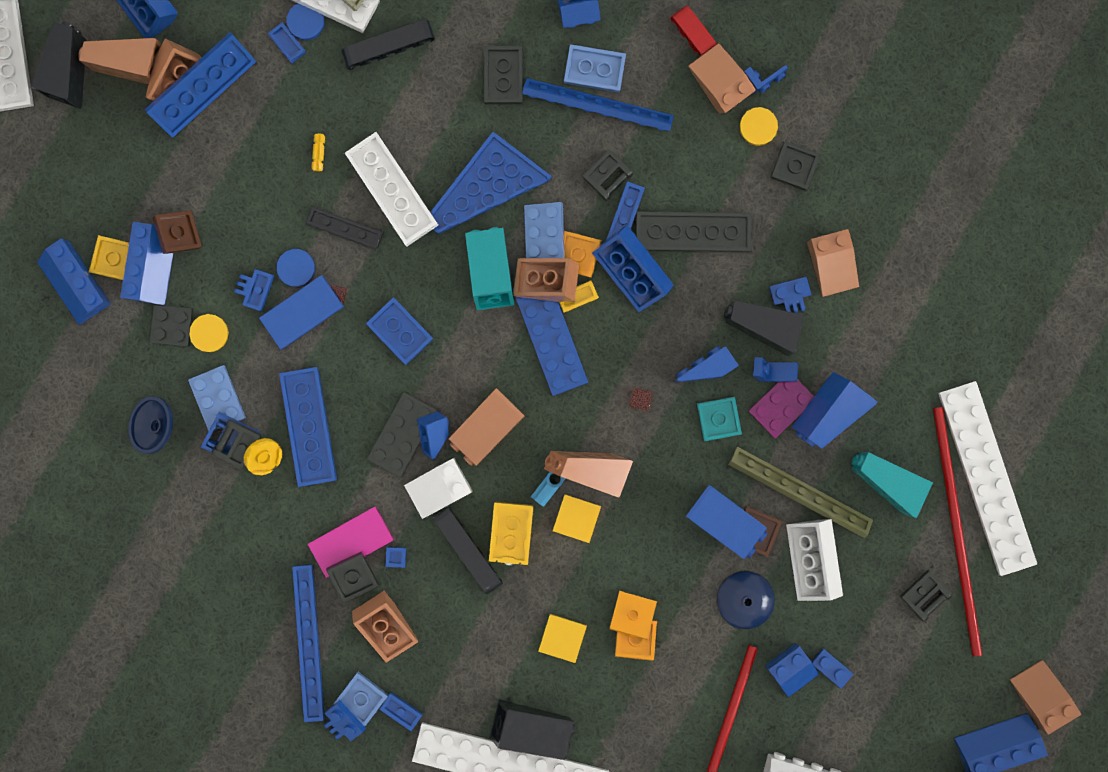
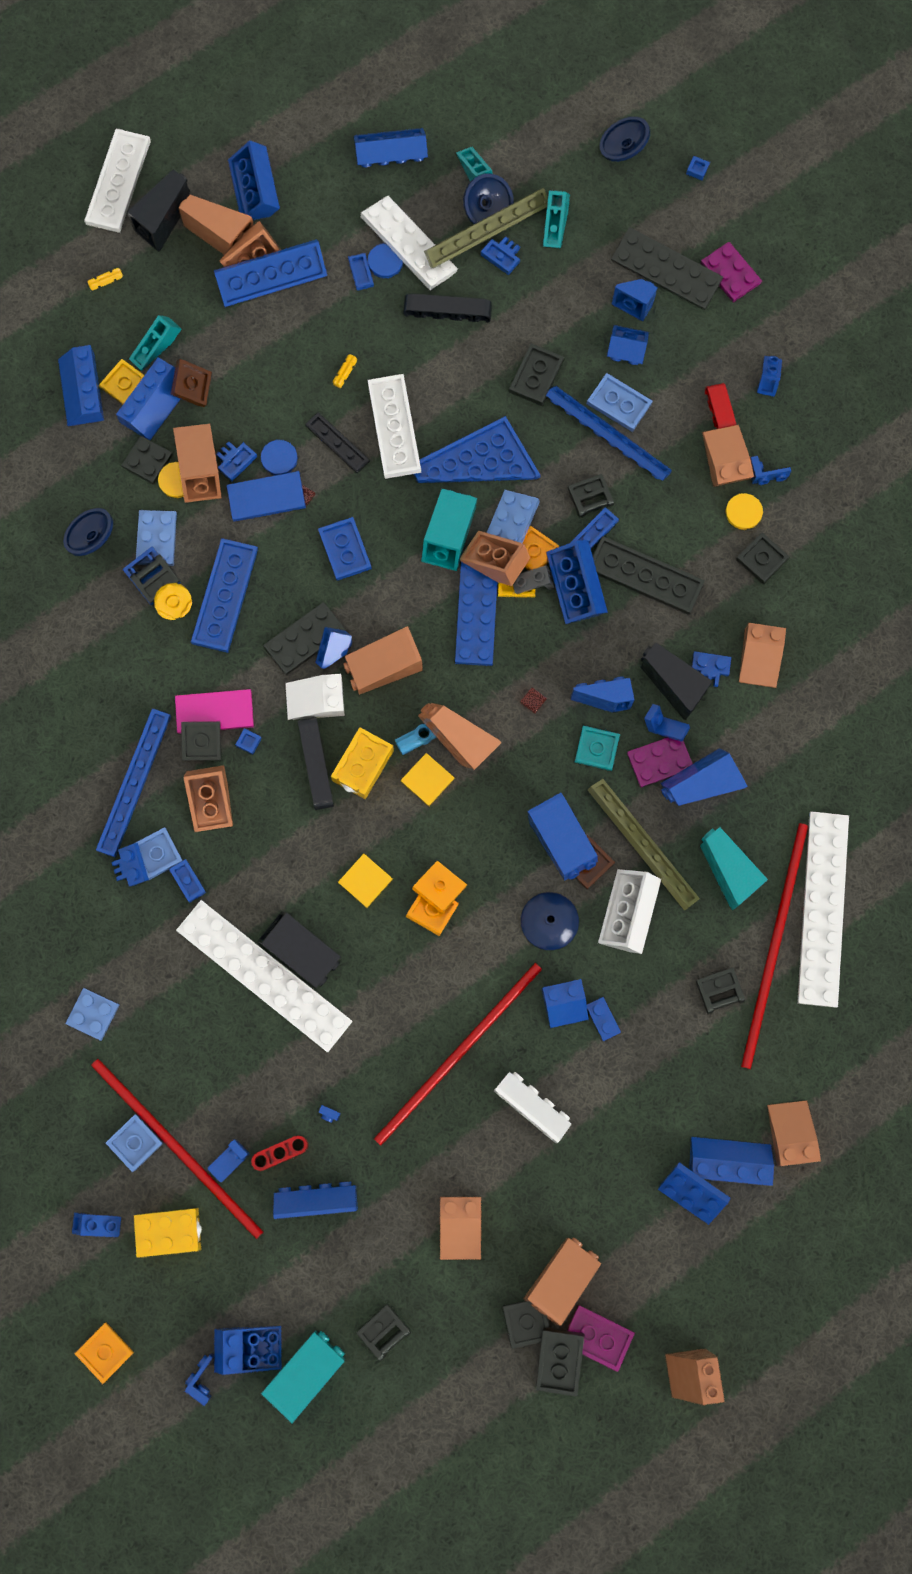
camera: 20 degrees right, 10 degrees down
(42, 160) = (105, 279): none -> yellow axle
(122, 204) = (155, 341): none -> teal slope
(220, 309) = (197, 463): none -> nougat slope
(592, 284) = (534, 579): none -> dark grey bracket

